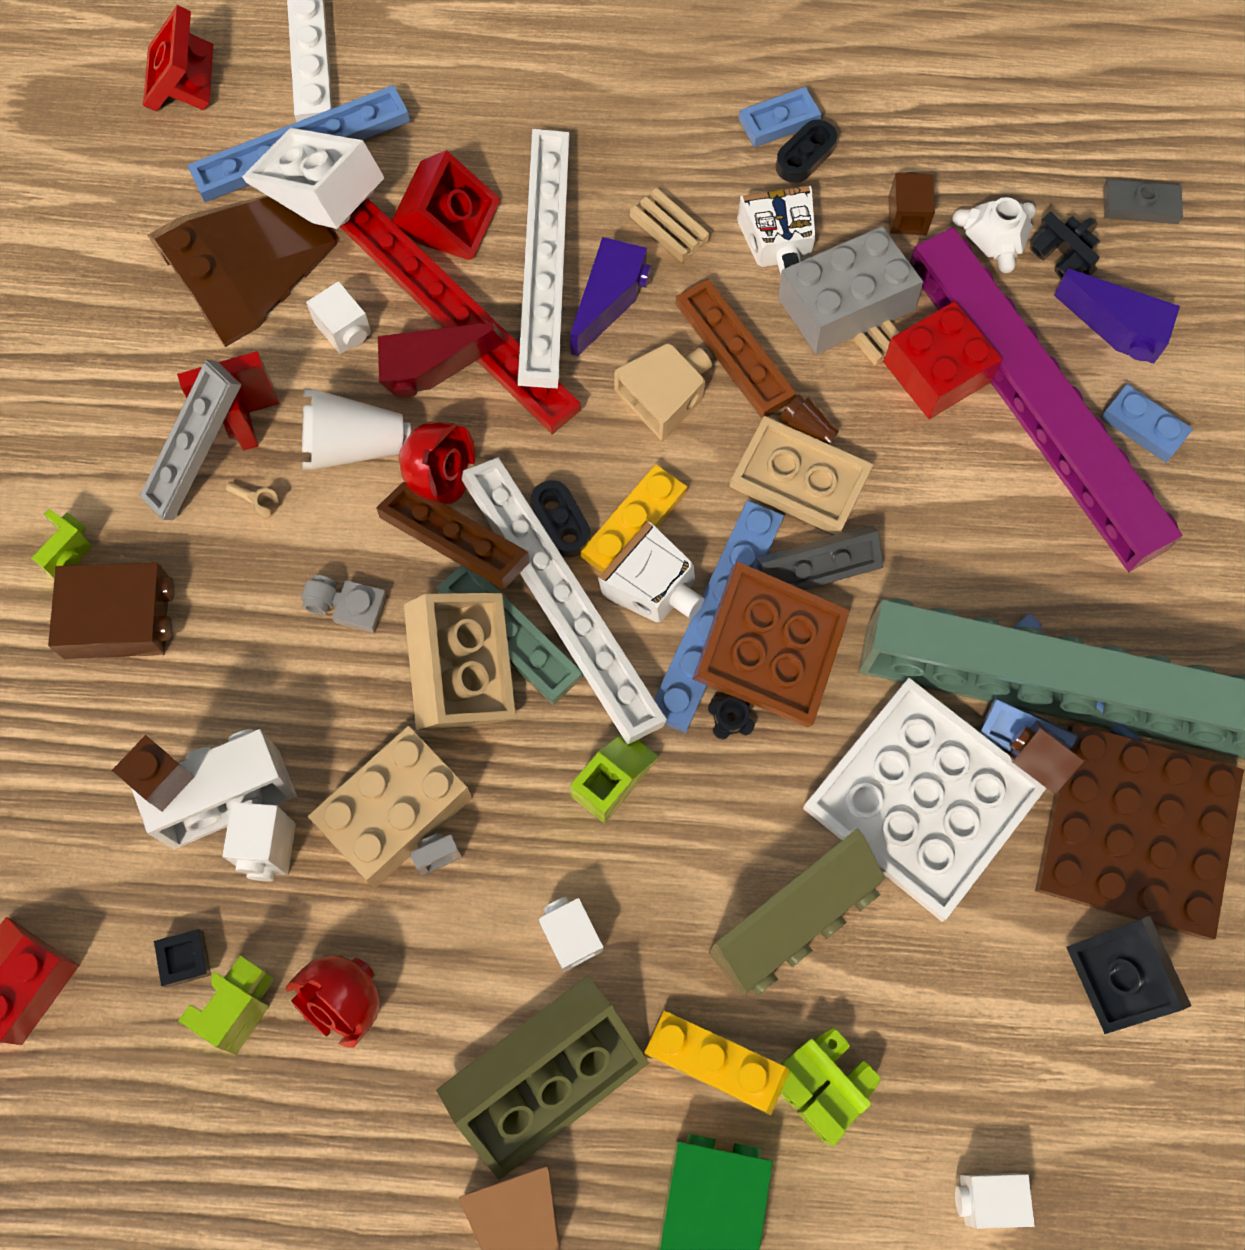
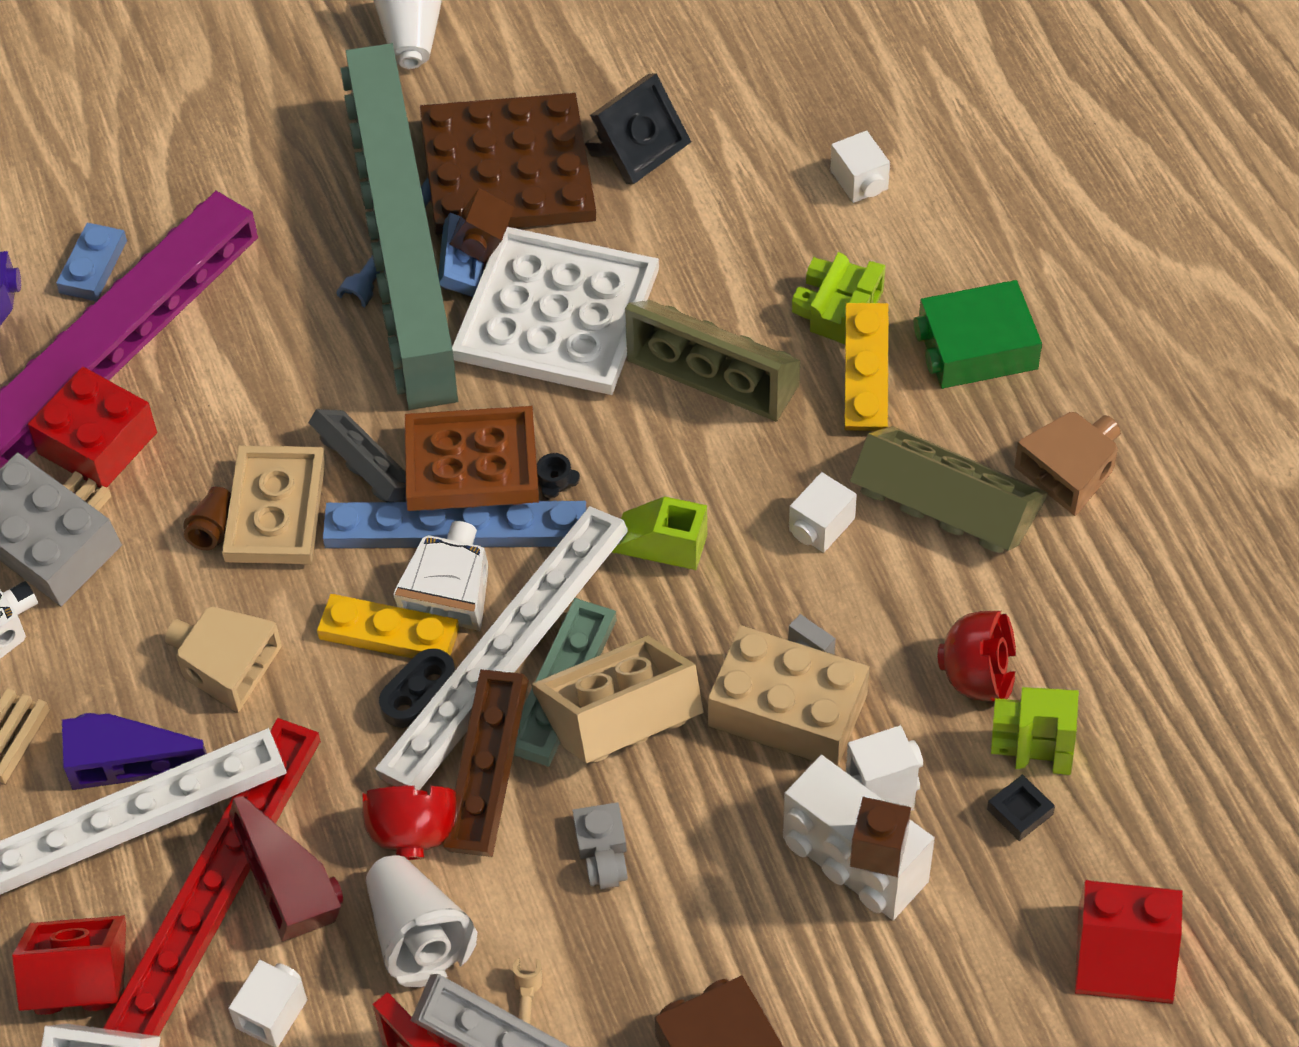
camera: 110 degrees left, 15 degrees down
(735, 348) = (146, 612): dark orange plate -> none

